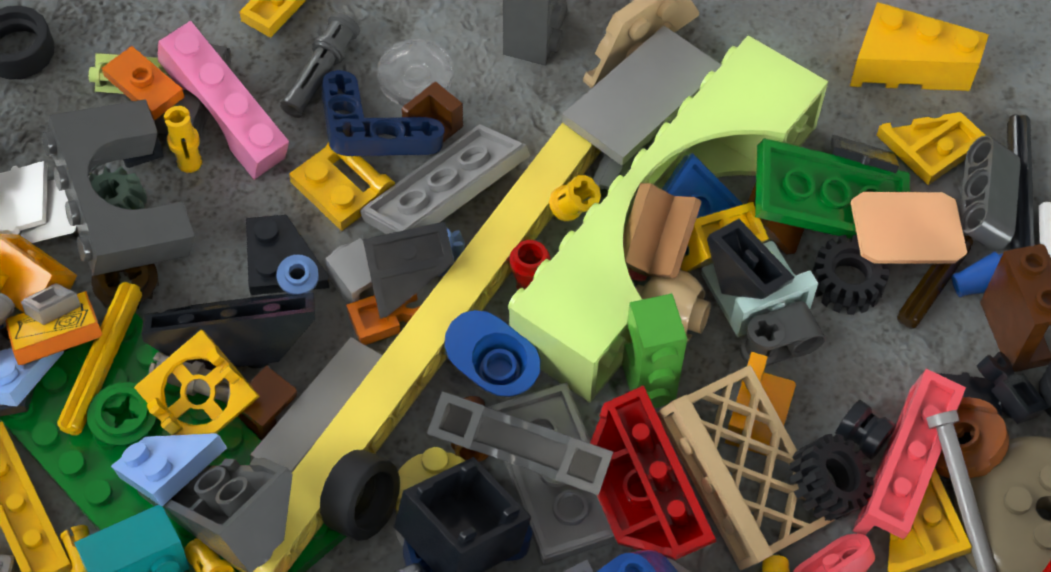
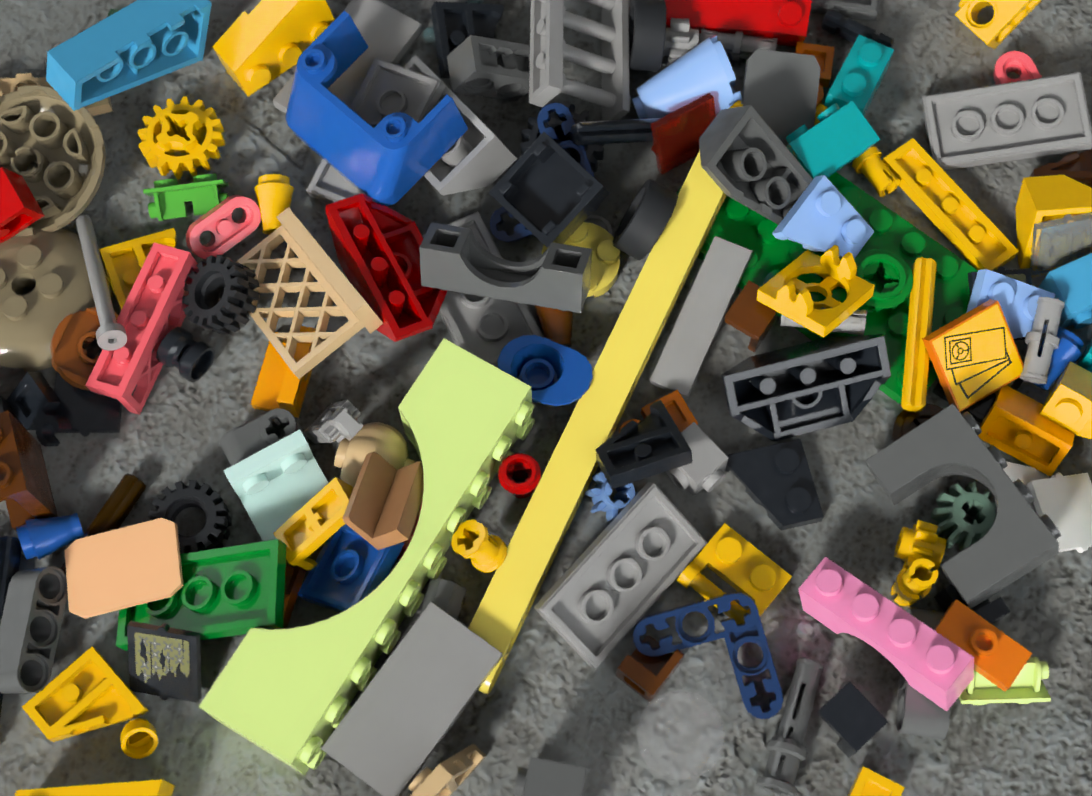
camera: 175 degrees right, 10 degrees up
(50, 303) = (985, 377): light grey tile -> none
(165, 178) = (920, 543): none -> yellow gear
(266, 56) = (852, 719): none -> black panel
(297, 286) = (750, 454): medium blue plate -> none
(656, 348) = (384, 367): bright green arch -> none
(709, 320) = (335, 423): none -> light grey hinge
(745, 263) = (292, 472): black slope -> none
(882, 111) = (143, 738): none -> yellow hinge

